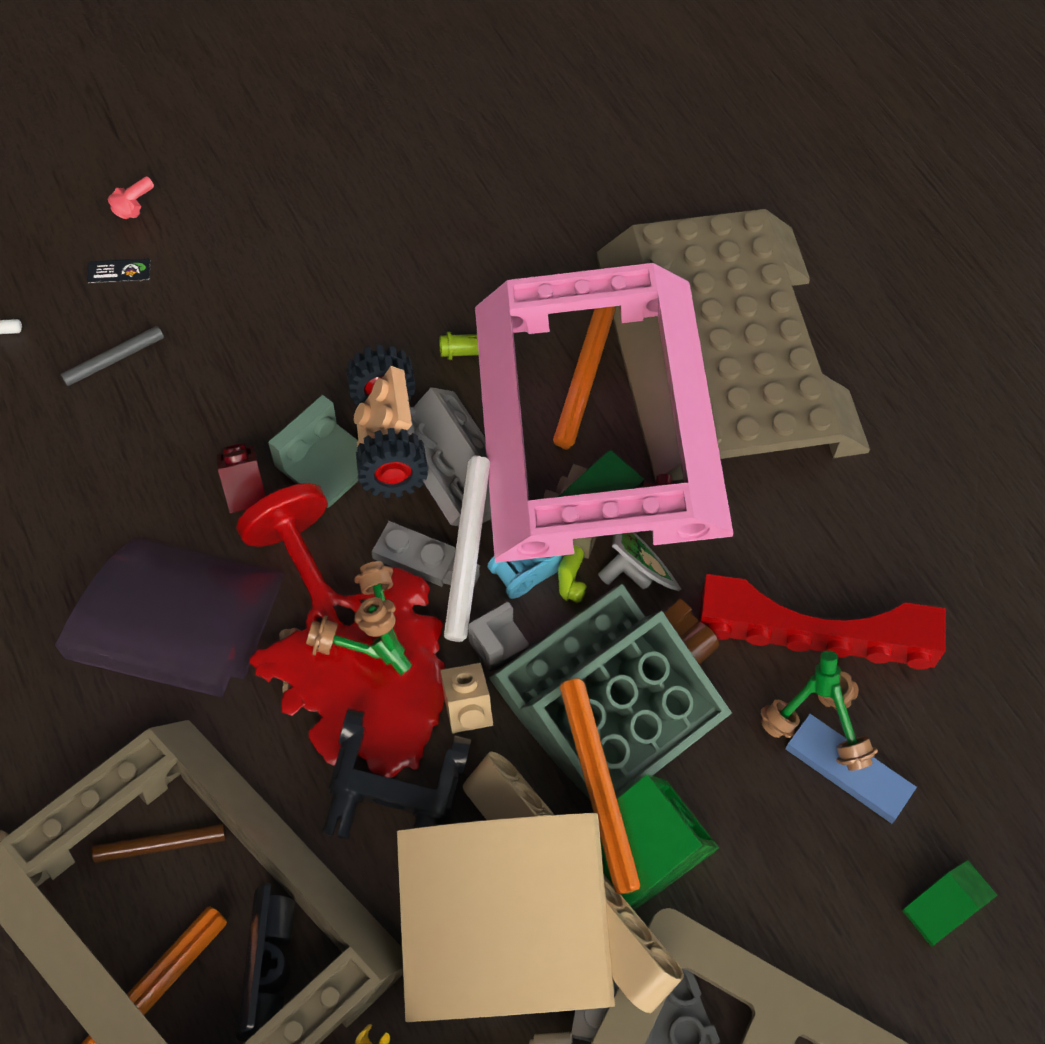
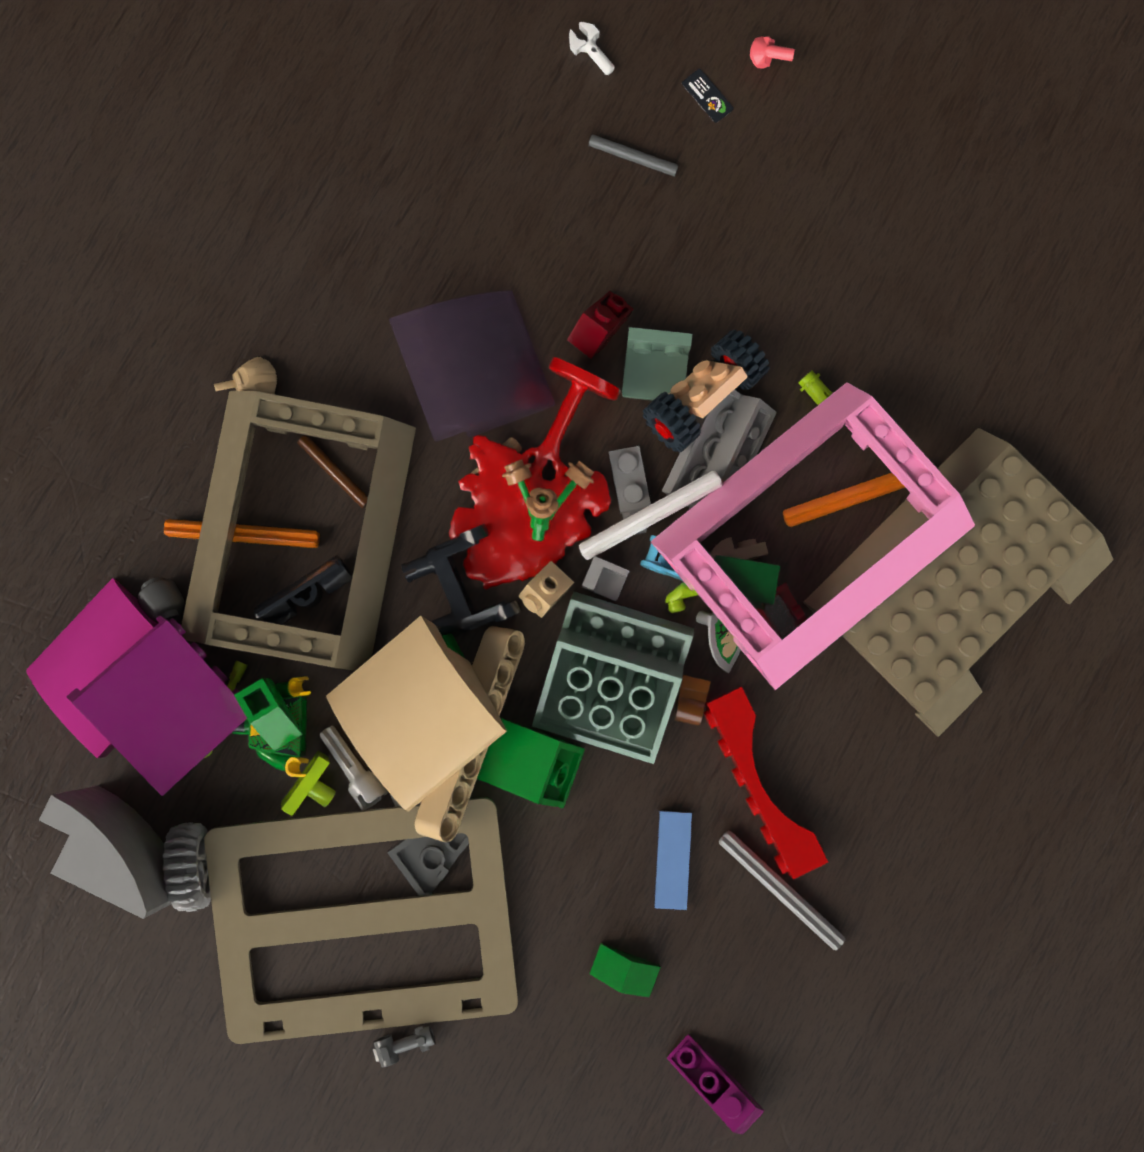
camera: 60 degrees right, 25 degrees up
(600, 786) = (535, 715): orange axle -> none
(834, 690) = (712, 816): plant -> none
(948, 680) = (782, 890): none -> light grey axle

